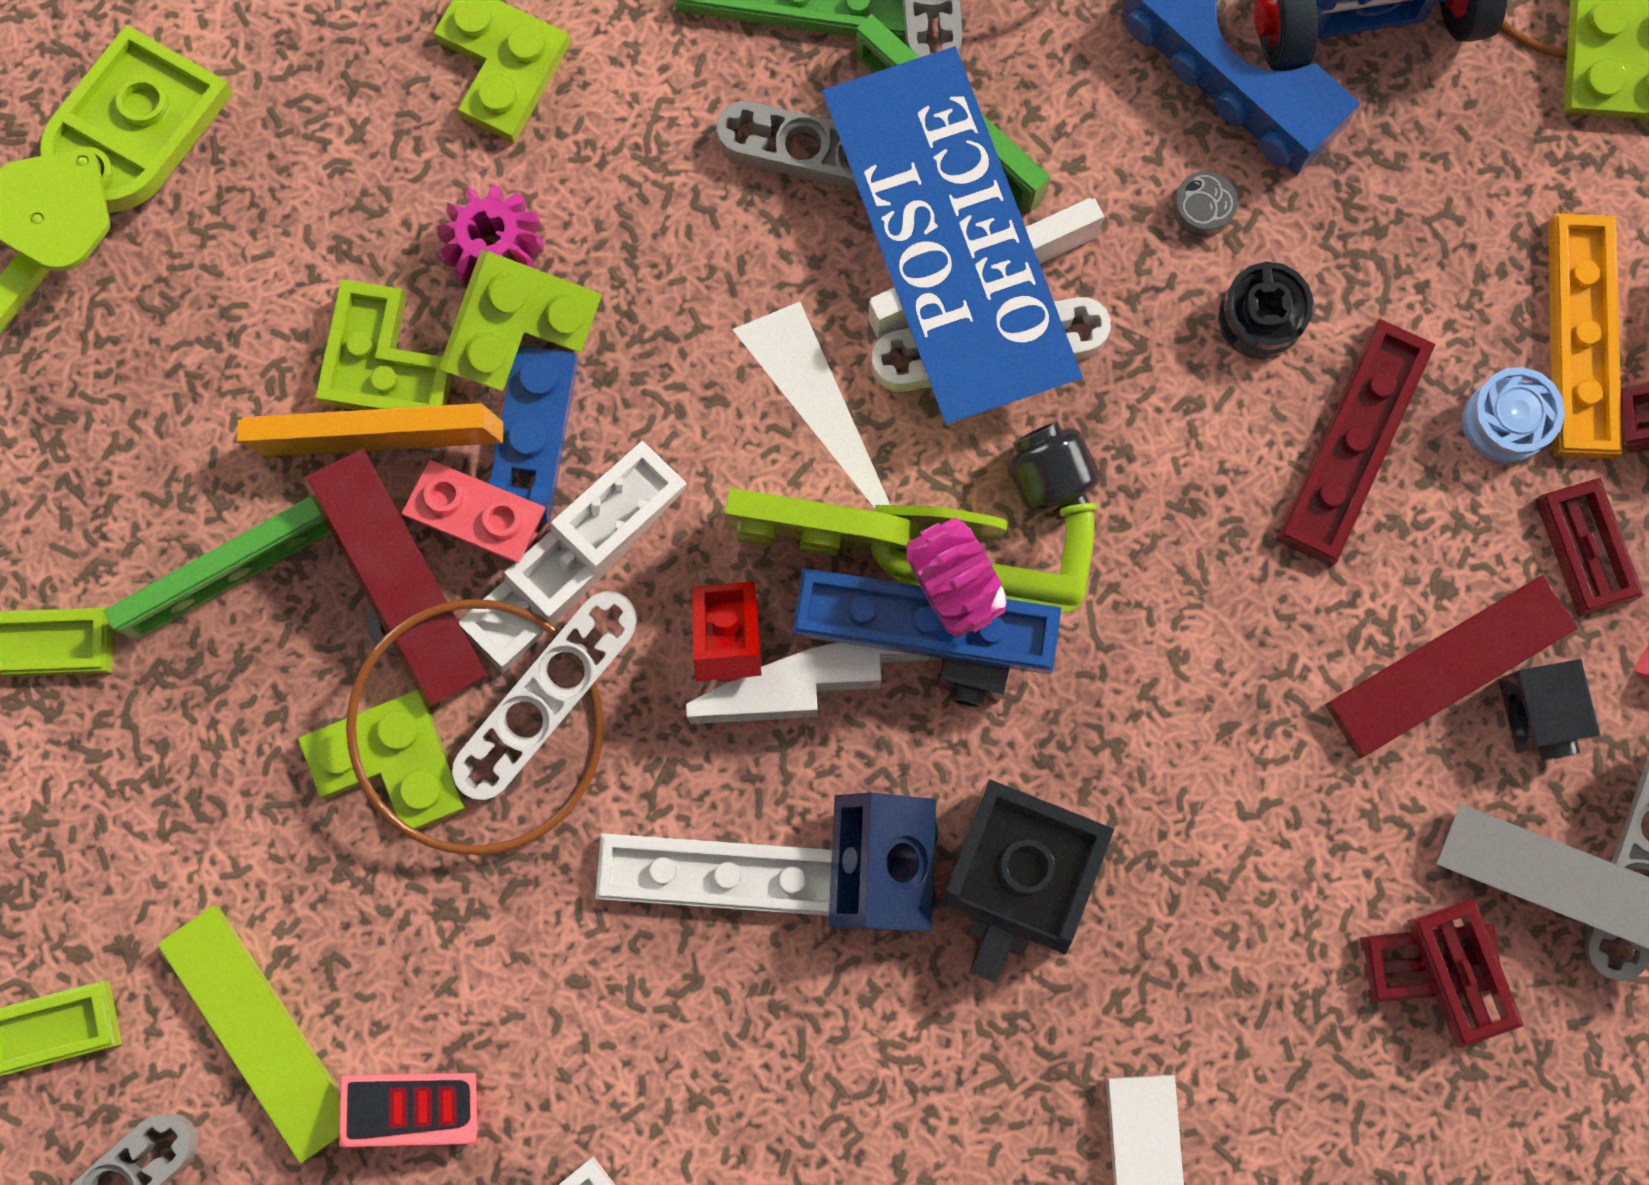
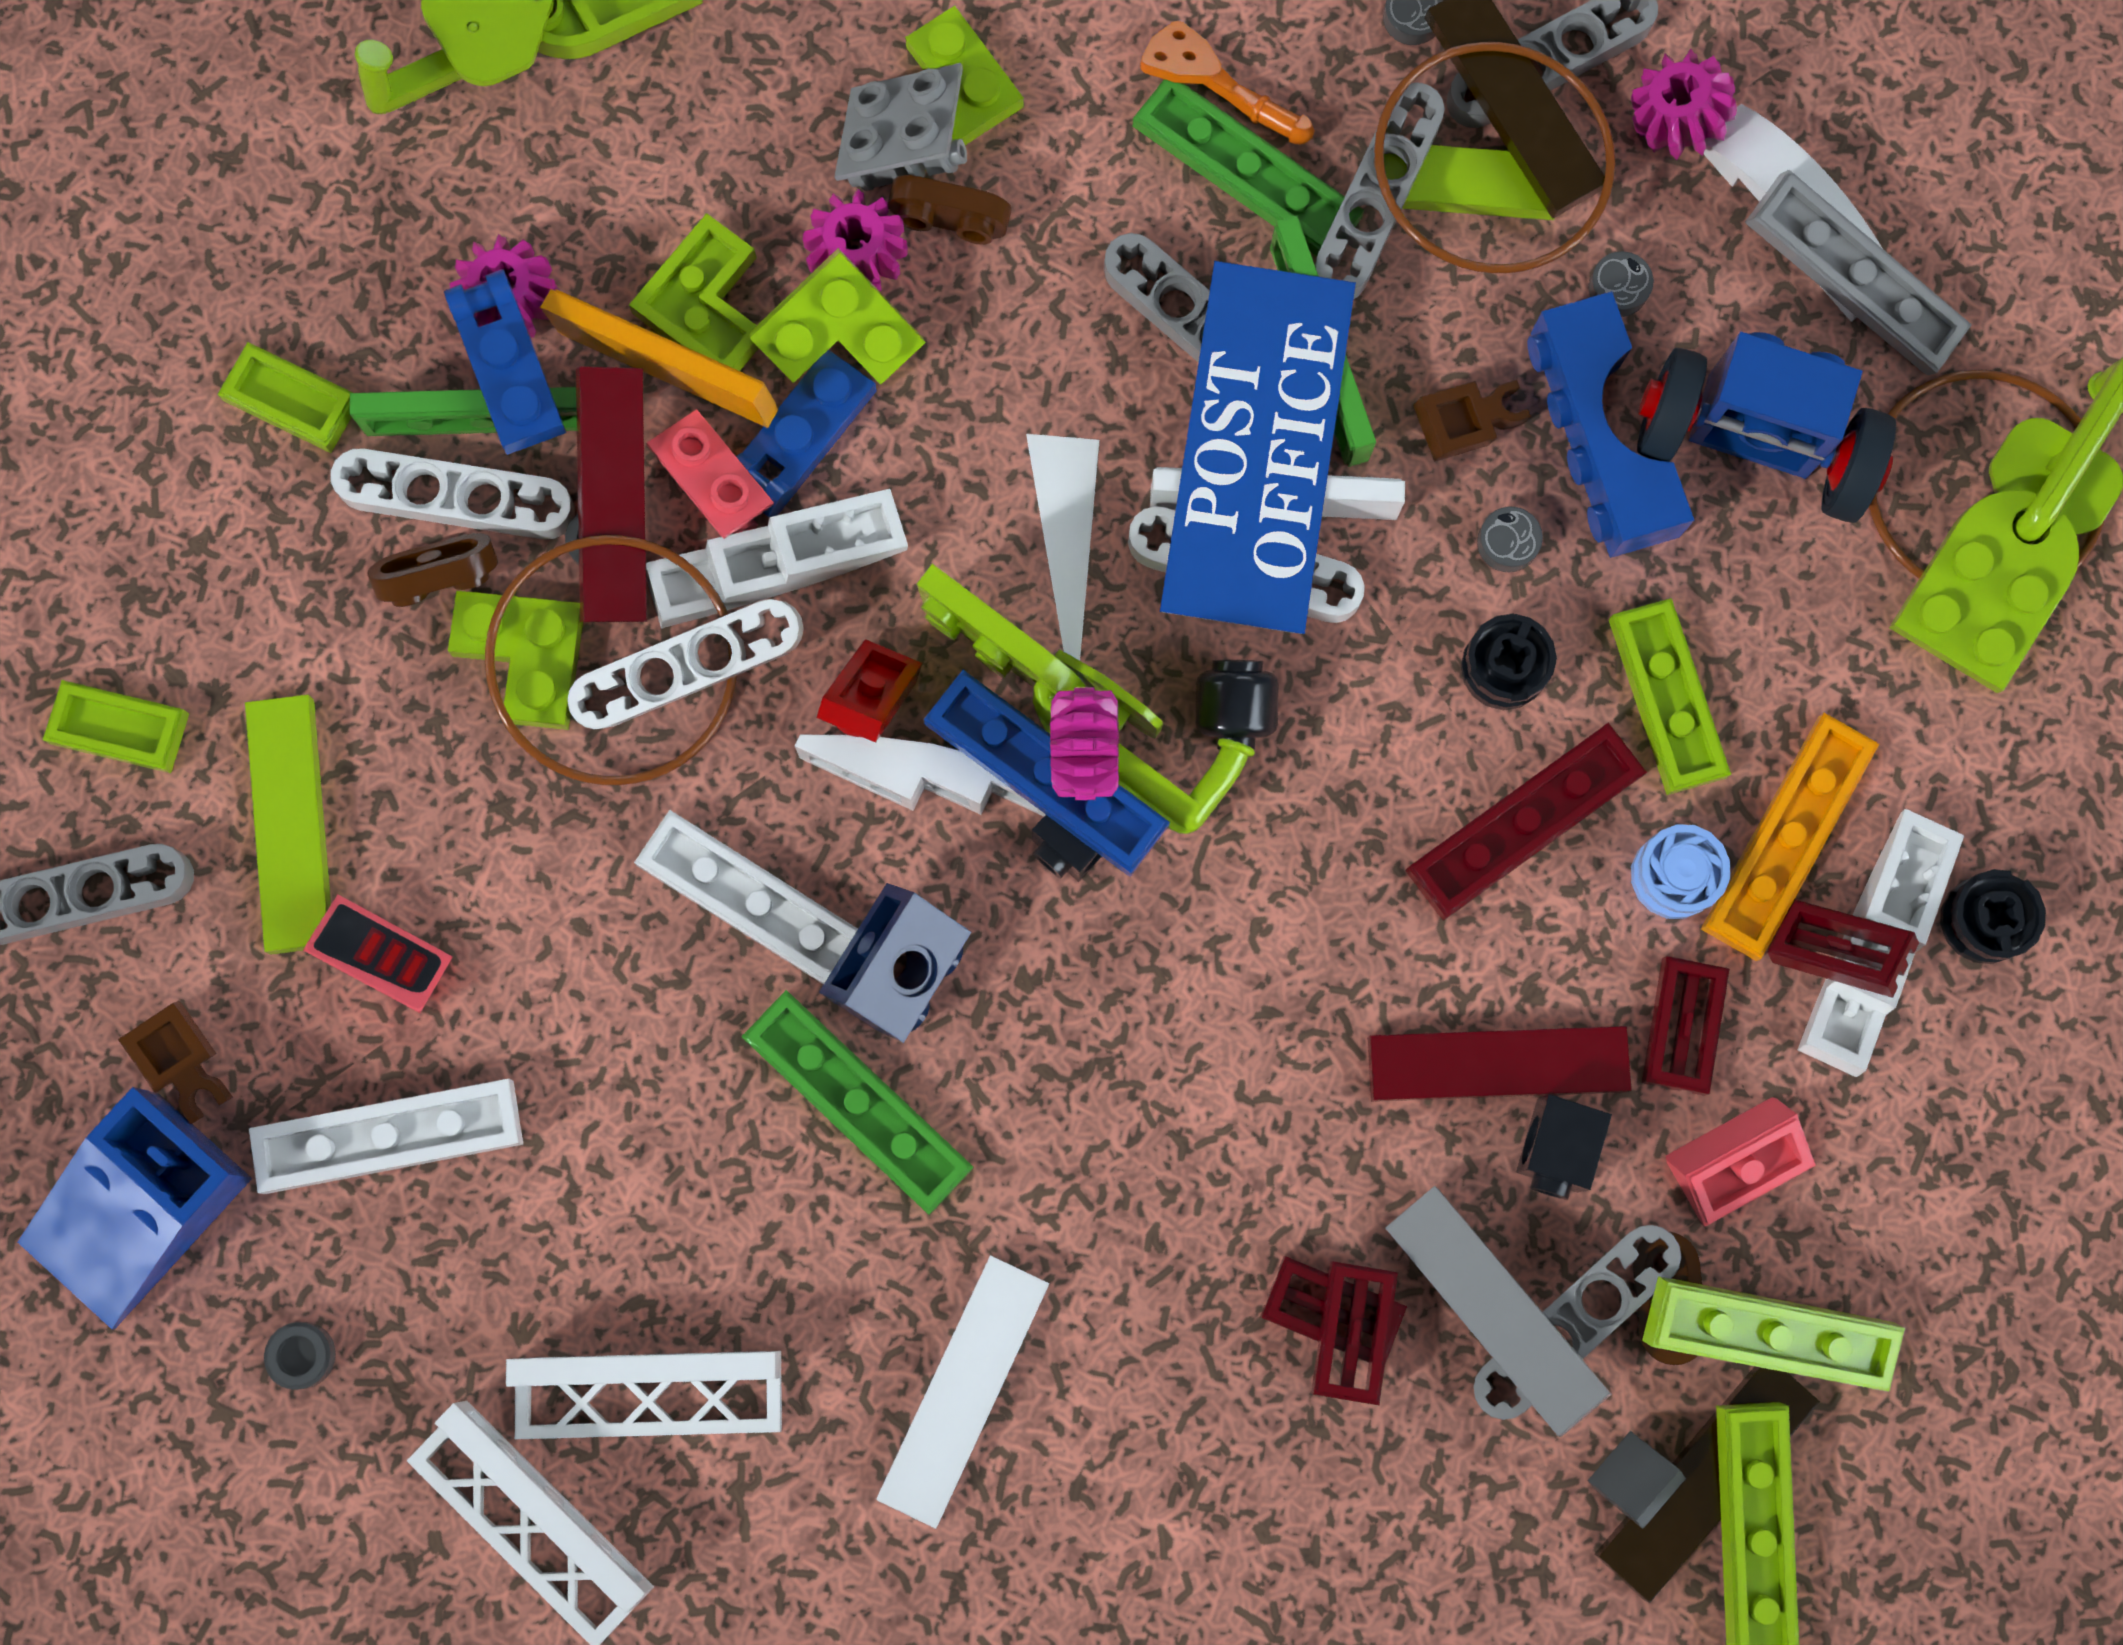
camera: 25 degrees right, 0 degrees up
(177, 428) = (522, 269): none -> dark pink gear
(234, 509) = (505, 364): none -> blue plate
(244, 643) = (451, 502): none -> white beam
(253, 740) = (414, 573): none -> reddish brown plate
(476, 113) = (901, 128): none -> light grey hinge
(556, 162) = (969, 211): none -> reddish brown plate
(914, 1006) = (857, 1102): none -> bright green tile
(1022, 875) = (1009, 1037): black hinge -> none
(1110, 119) = (1462, 420): none -> reddish brown plate
(1415, 268) = (1669, 696): none -> lime tile

